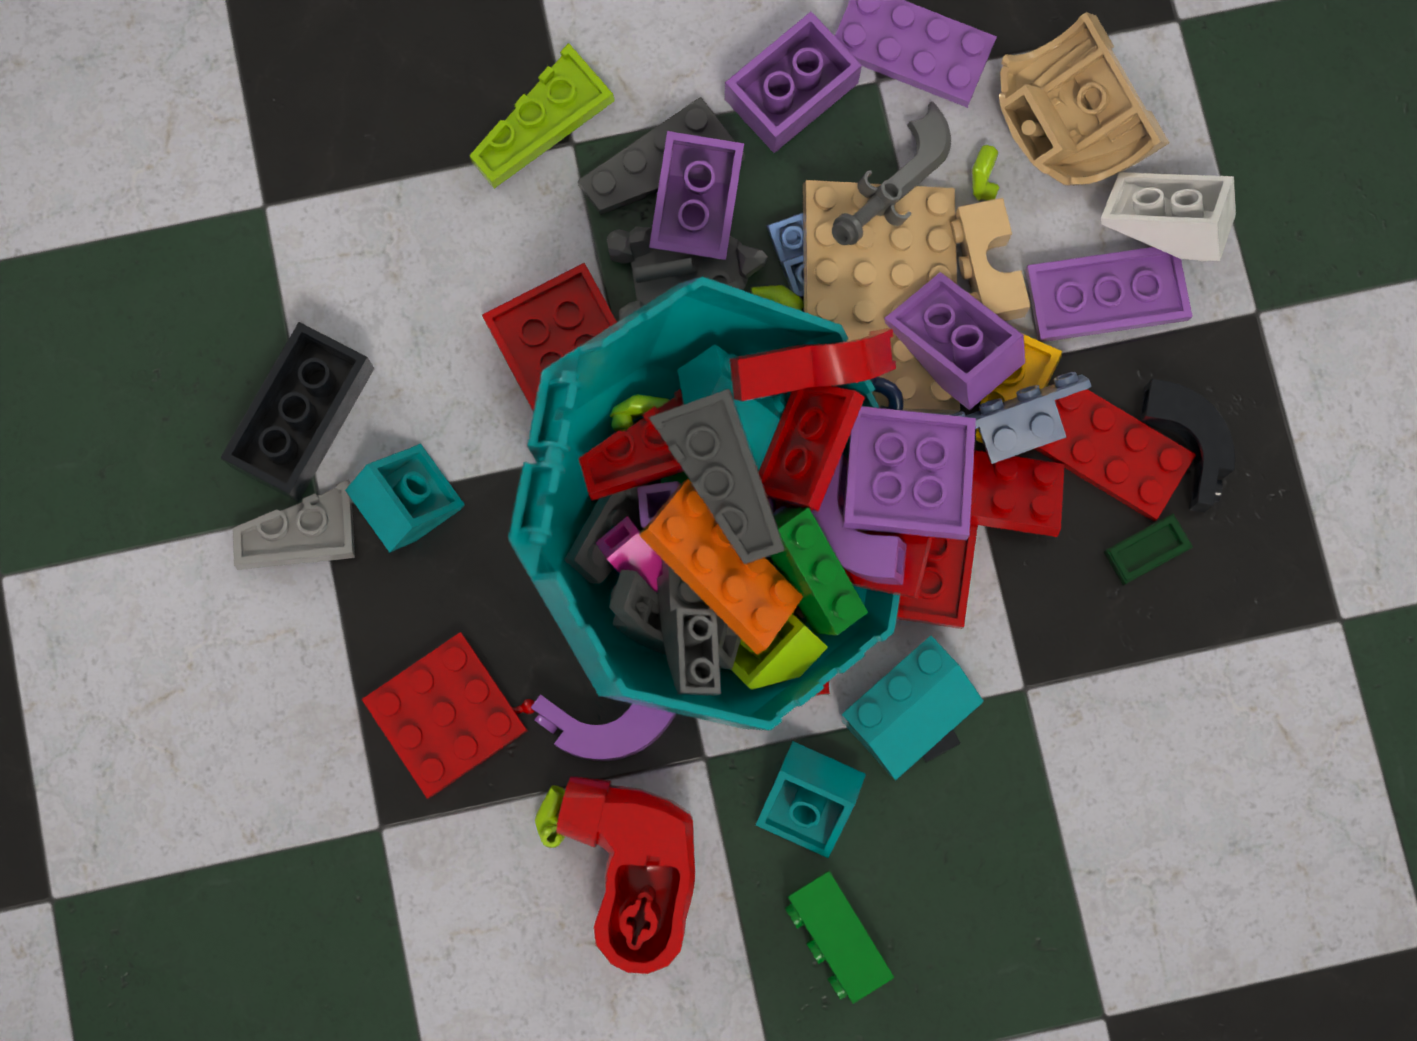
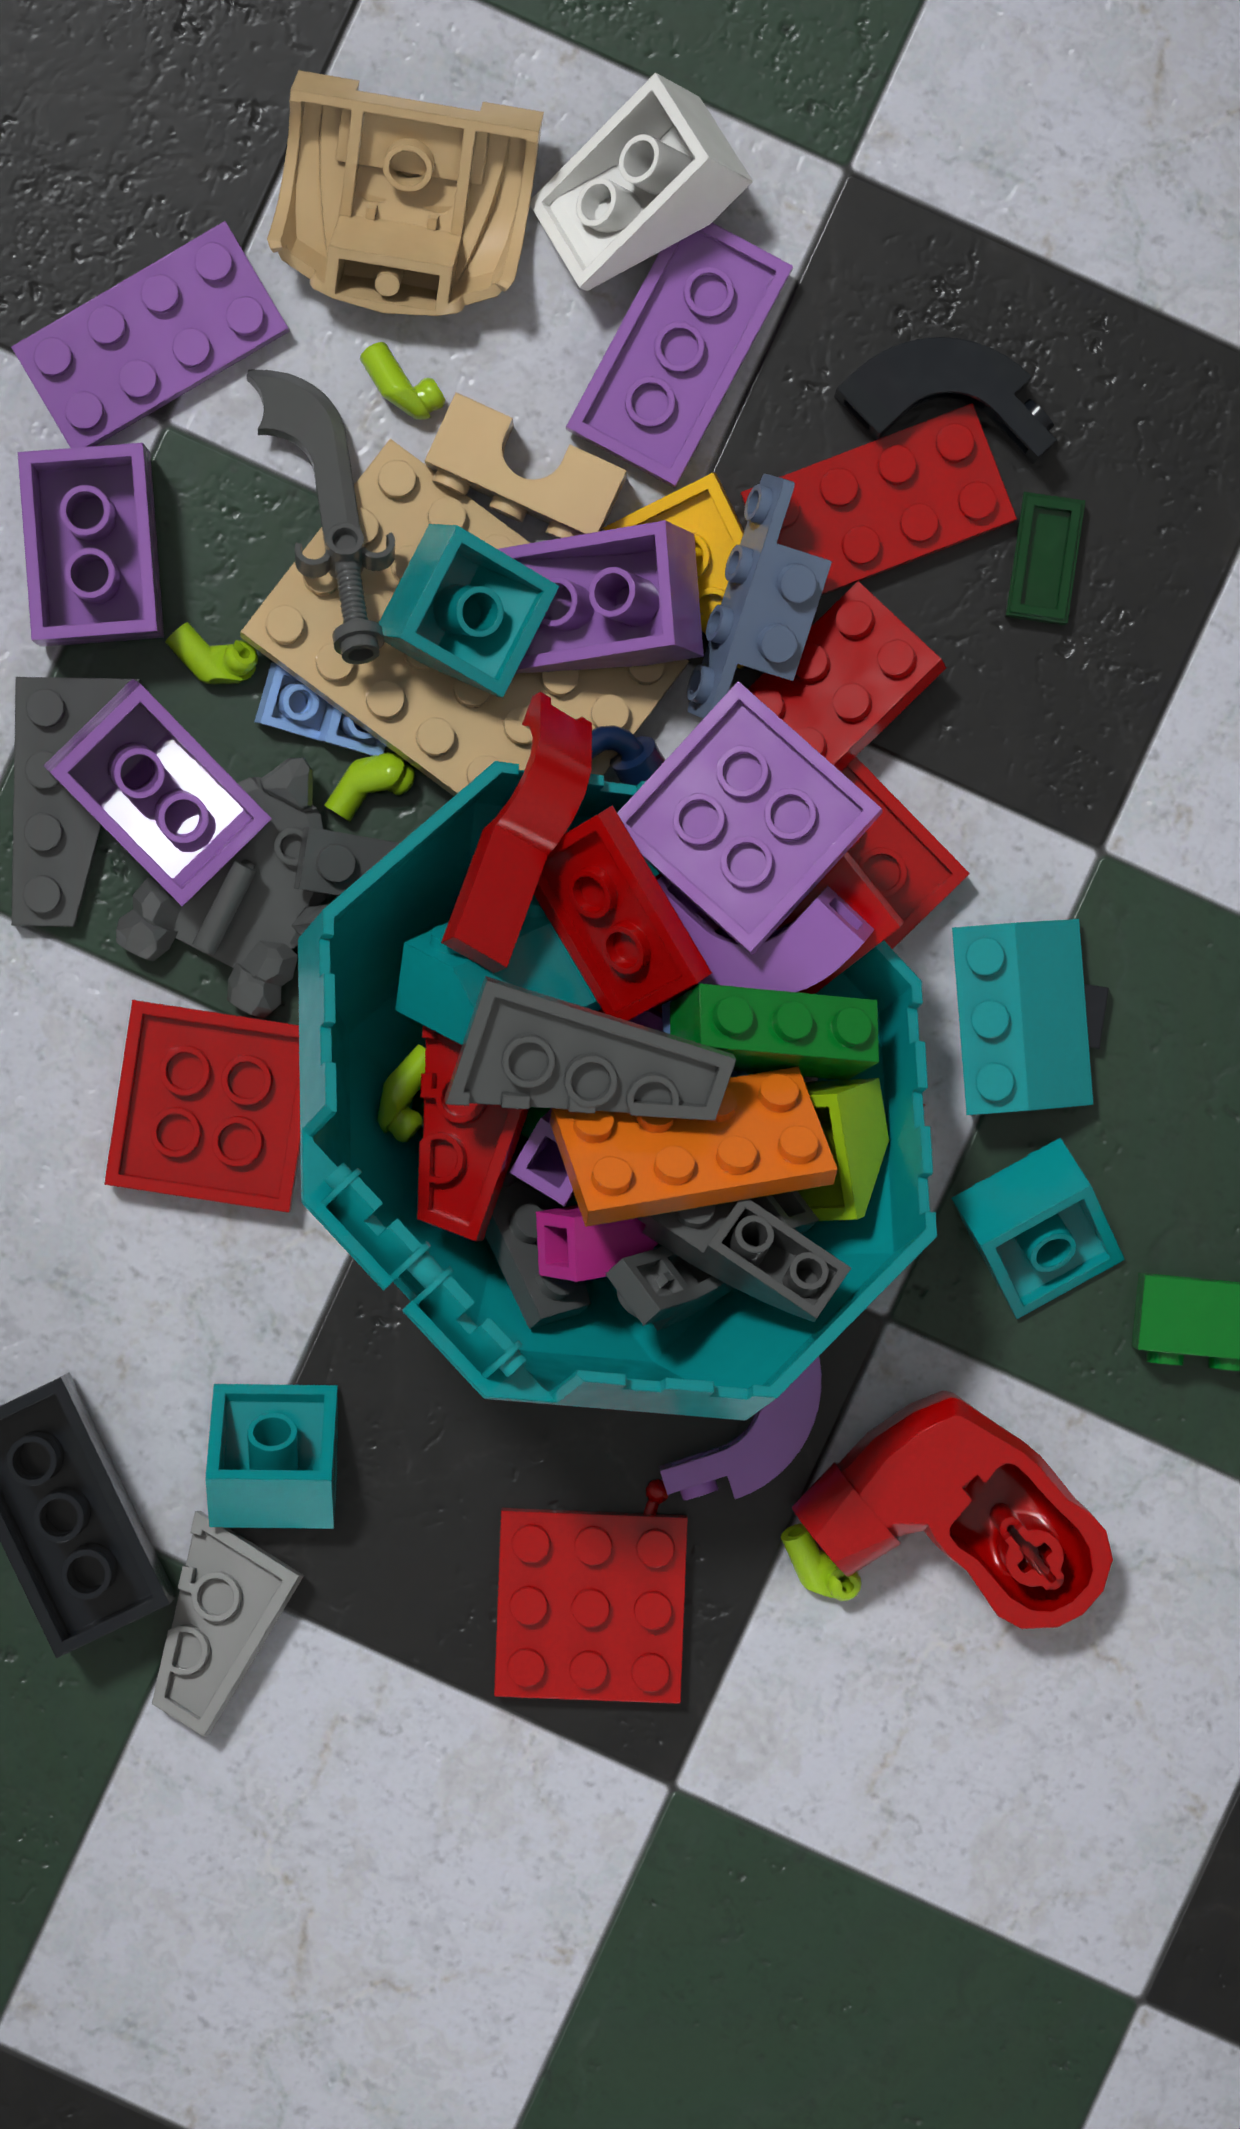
camera: 50 degrees left, 10 degrees up
(779, 185) = (215, 662): none -> lime arm
(902, 275) = (466, 609): none -> teal slope

